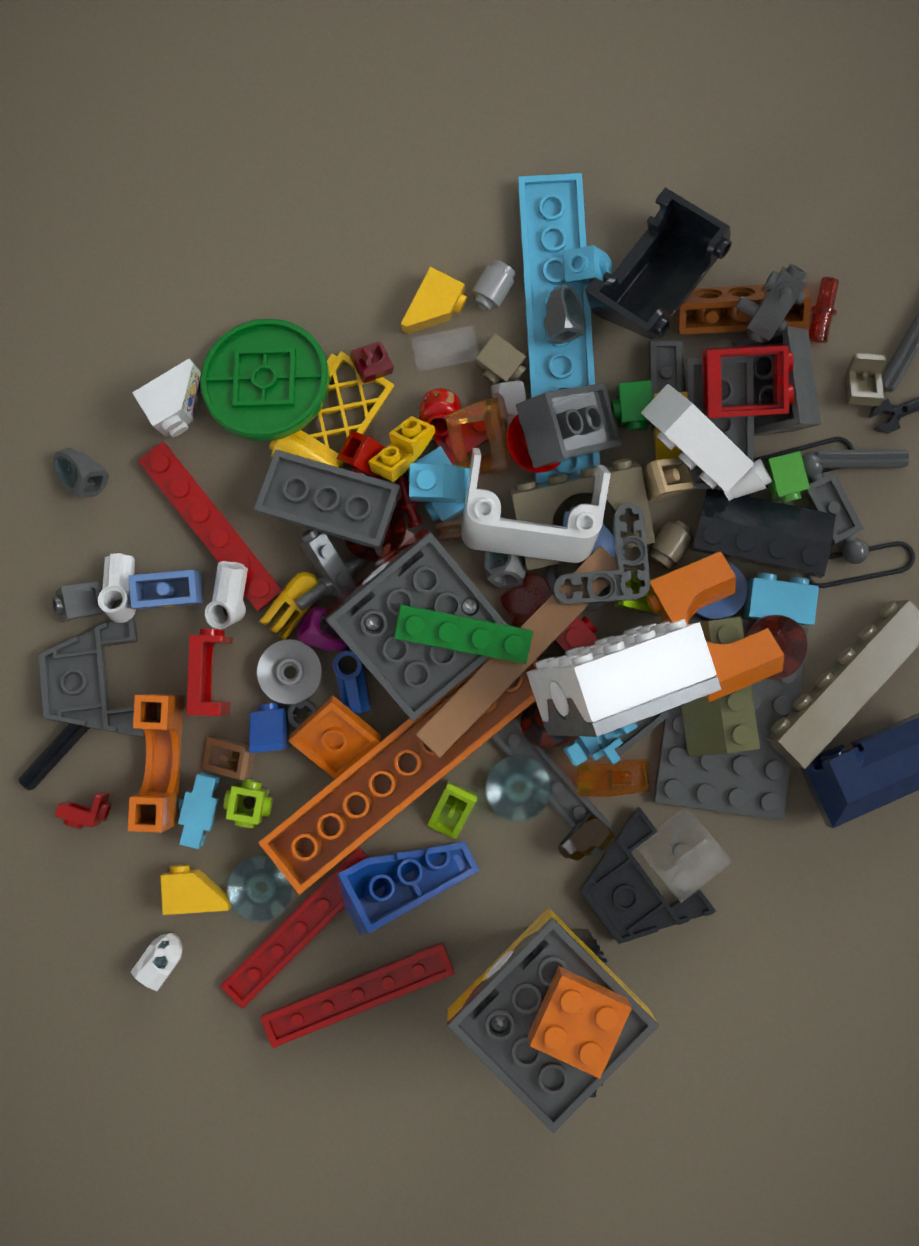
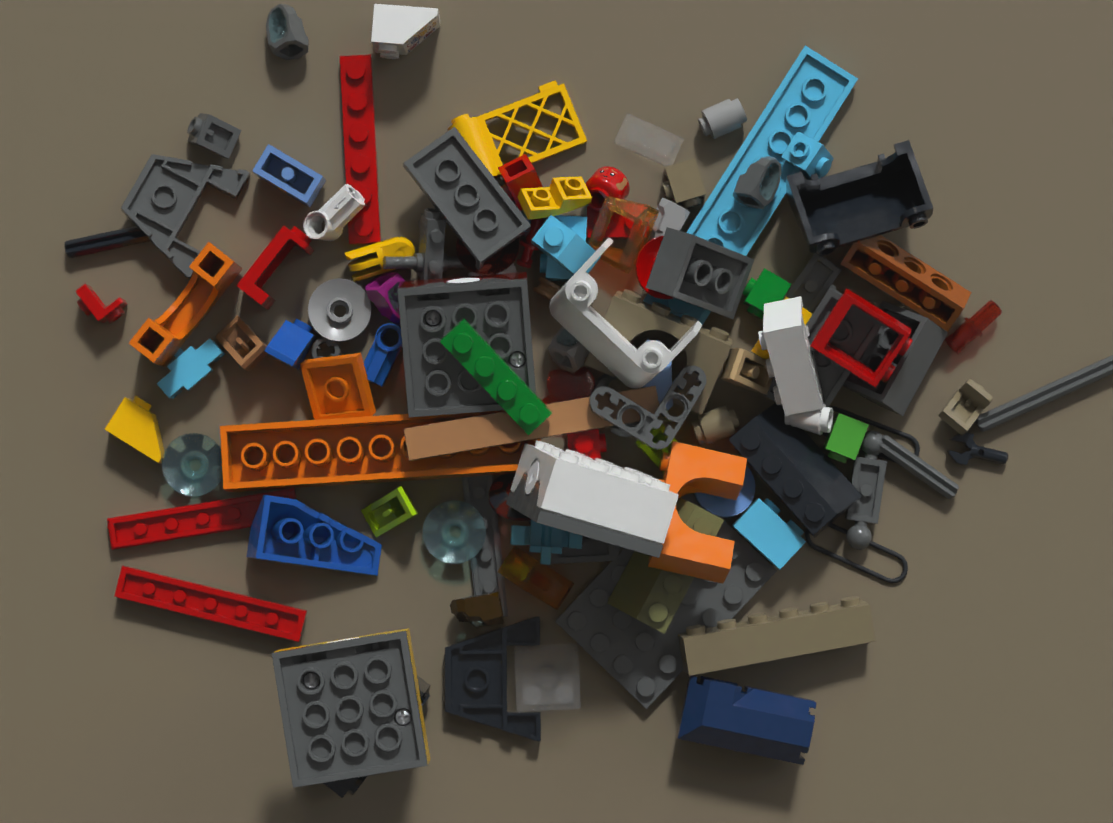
camera: 35 degrees right, 0 degrees up
(116, 587) = (252, 144): white piece -> none
(158, 961) = (74, 464): white rock -> none
(238, 811) = (224, 381): lime brick -> none
(265, 379) = (486, 64): green plate -> none
(371, 361) = (581, 110): dark red tile -> none
(434, 302) = (666, 98): yellow slope -> none
(579, 1022) = (370, 716): orange brick -> none
(782, 292) = (939, 289): dark grey piece -> none
(788, 636) = (751, 572): clear red dish -> none

